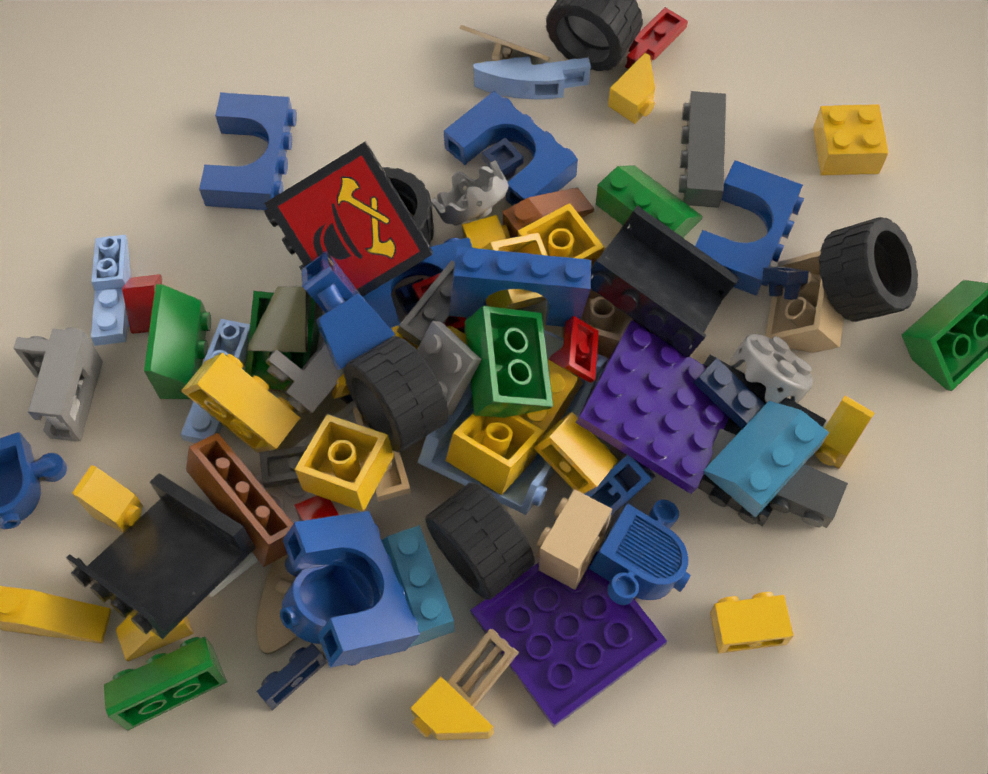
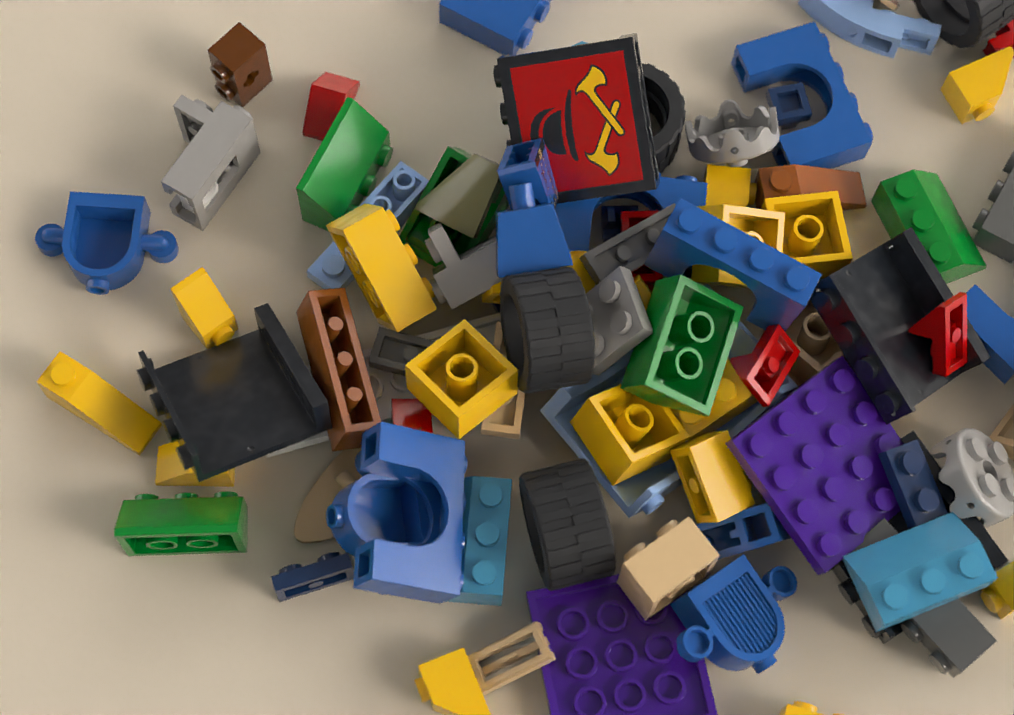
camera: 20 degrees right, 5 degrees up
(56, 297) = (240, 65): none -> reddish brown brick
(109, 275) = (303, 64): light blue slope -> none
(699, 269) = (948, 332): none -> red slope

